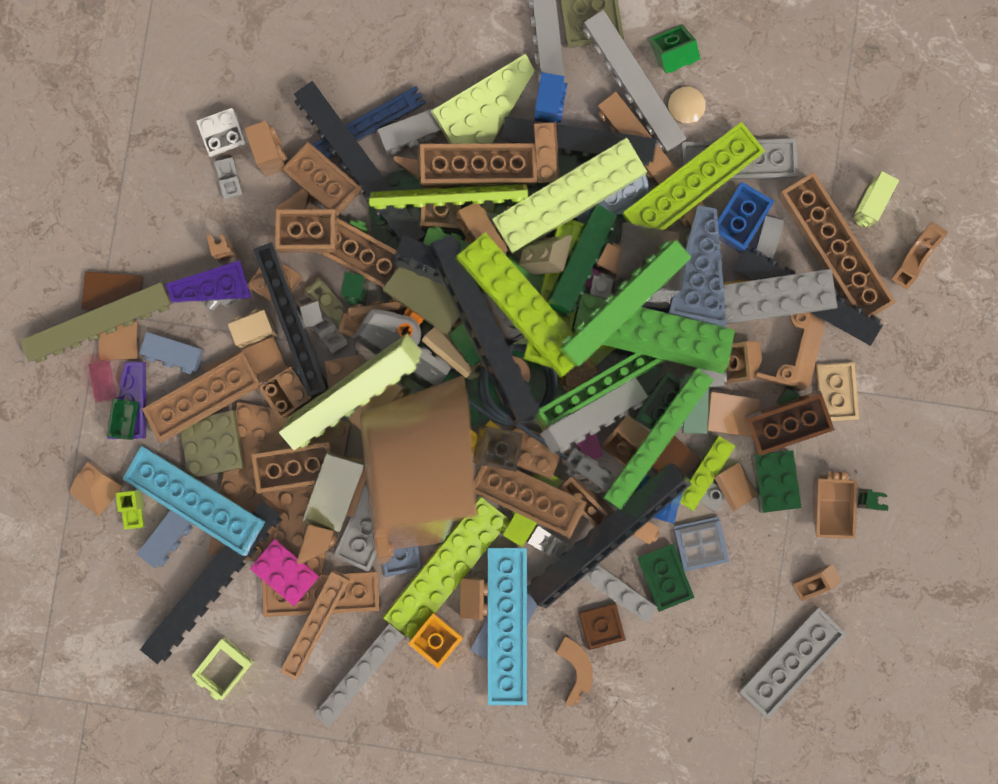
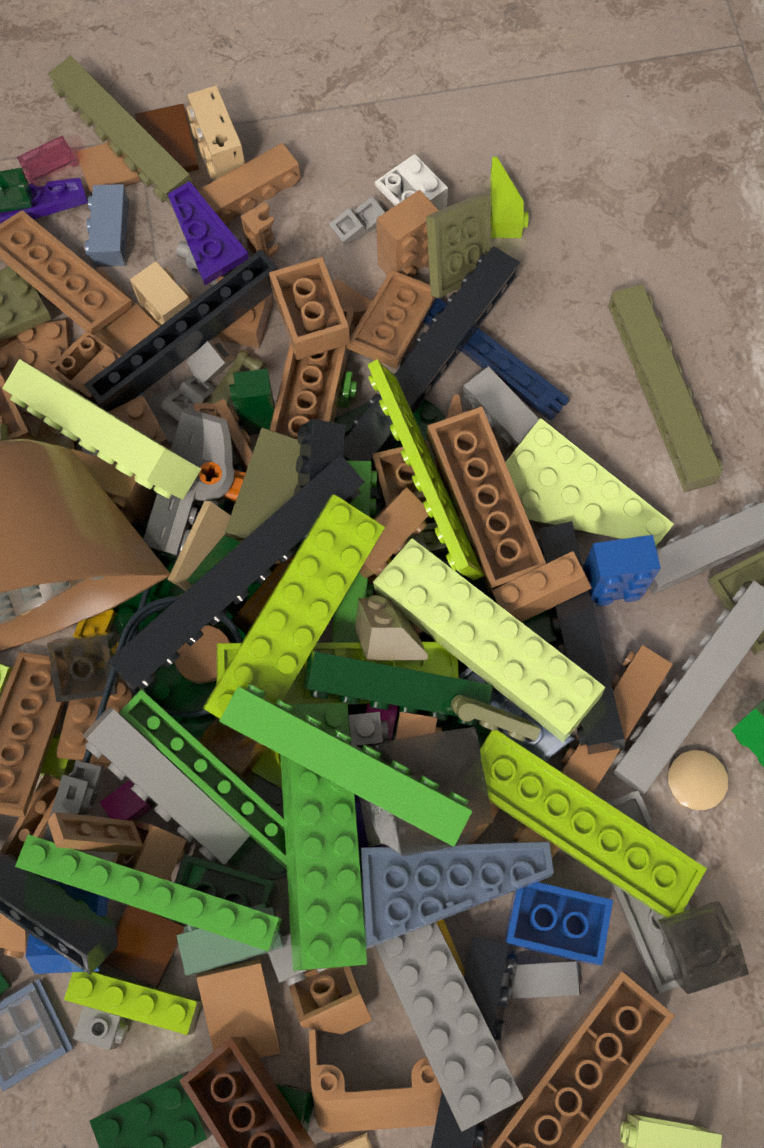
camera: 70 degrees right, 15 degrees down
(129, 255) = (215, 132): none -> tan piece
(173, 242) = (252, 183): none -> medium nougat brick
(255, 73) = (506, 205): none -> lime slope
(285, 116) = (456, 242): none -> olive plate
(428, 21) = (664, 388): none -> olive brick
(614, 460) = (94, 833): none -> medium nougat plate
(618, 209) = (493, 717): none -> olive plate
(735, 486) = (123, 1059): medium nougat tile -> none
(784, 141) = (702, 947): none -> clear smoke slope

